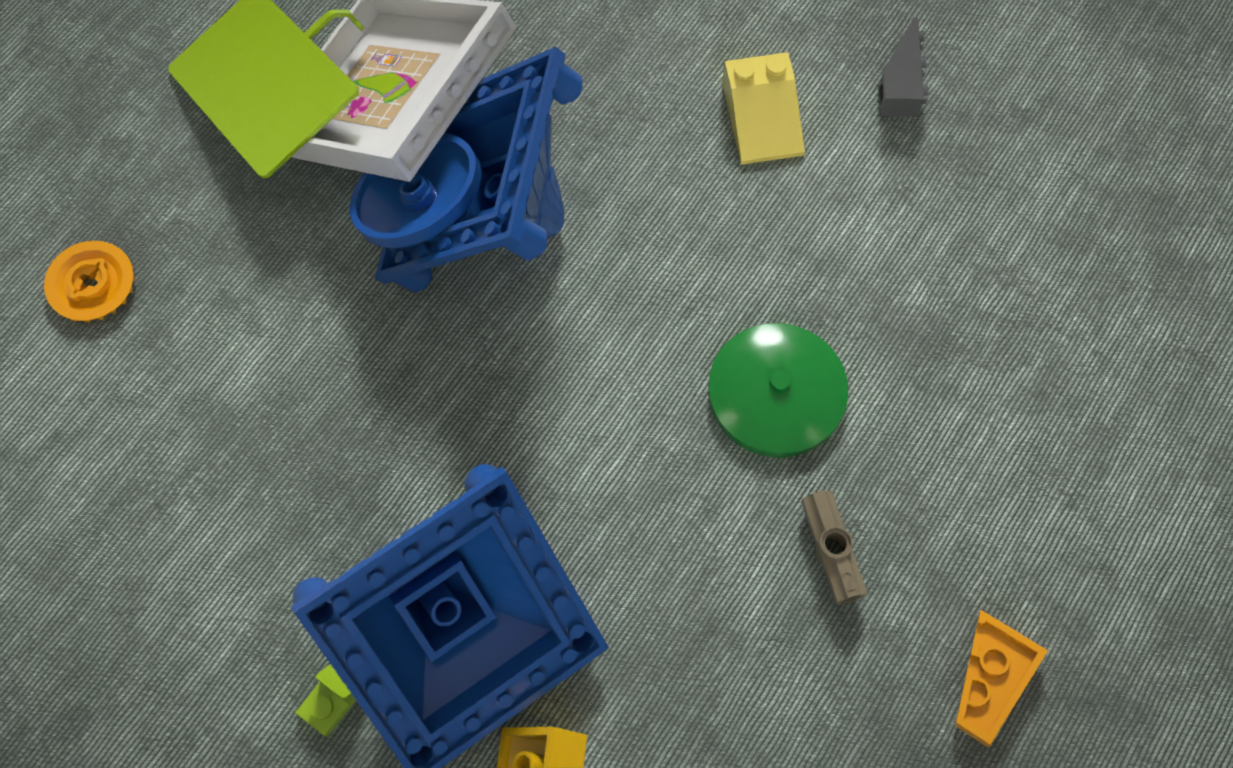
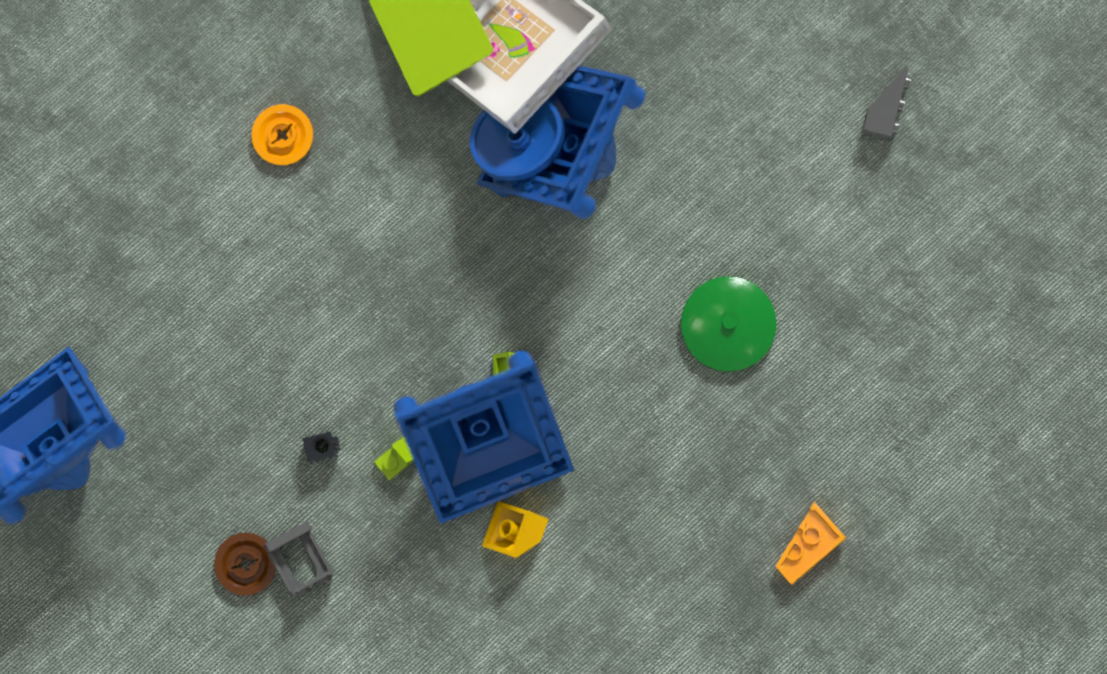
camera: 15 degrees right, 15 degrees up
(189, 708) = (310, 447): none -> black brick
(763, 108) = (777, 113): light yellow slope -> none
(840, 569) = (732, 424): dark tan piece -> none

